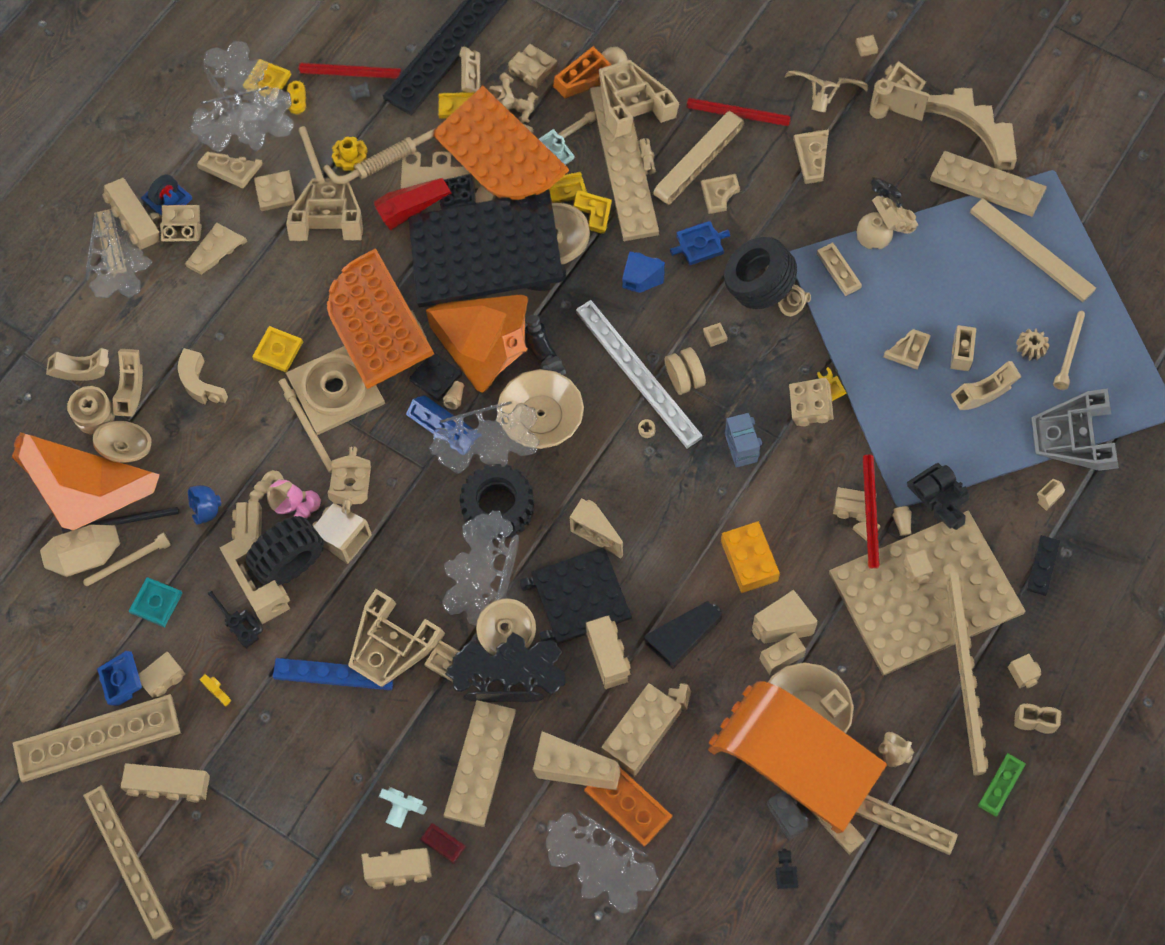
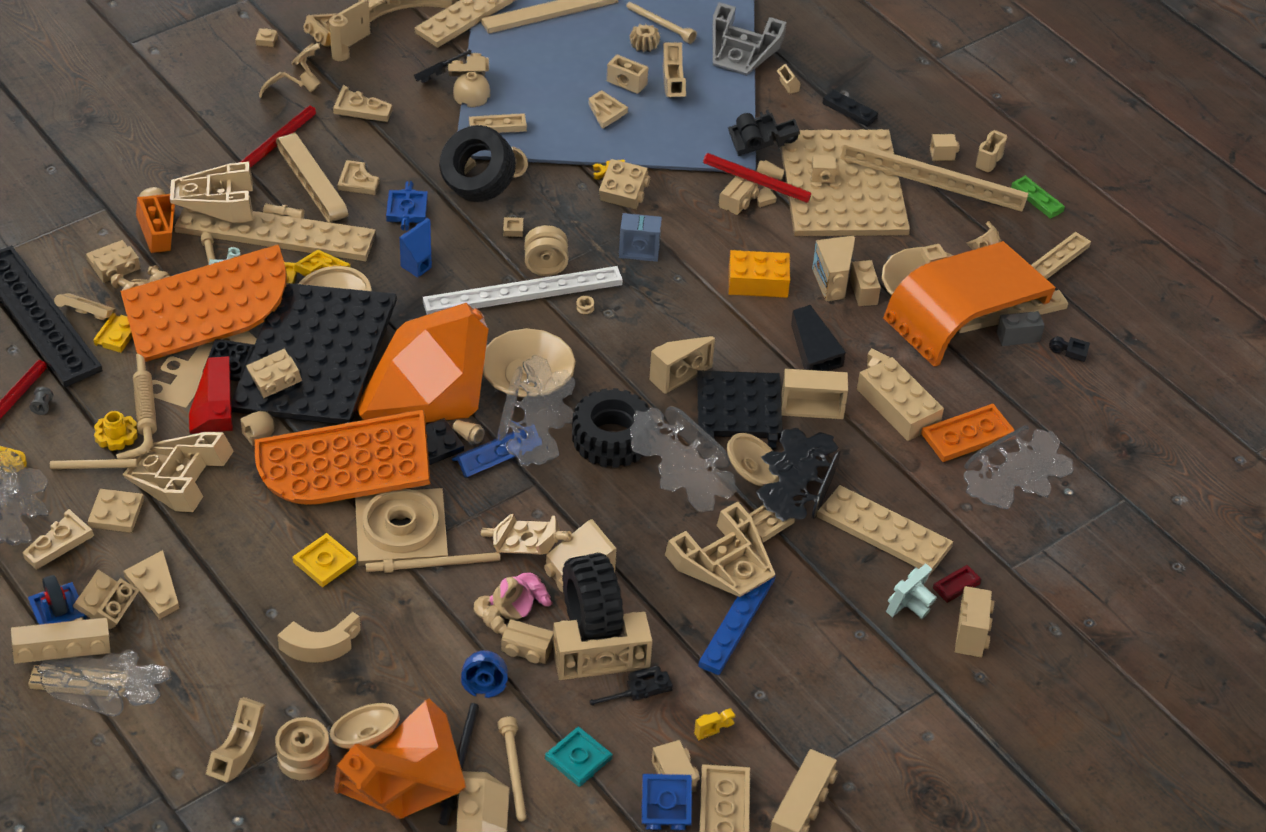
camera: 75 degrees left, 20 degrees down
(130, 383) = (286, 703): tan arch -> none
(395, 245) = (257, 426): none -> tan brick
(442, 229) = (274, 373): none -> tan plate
(573, 764) = (918, 451): tan wedge -> none

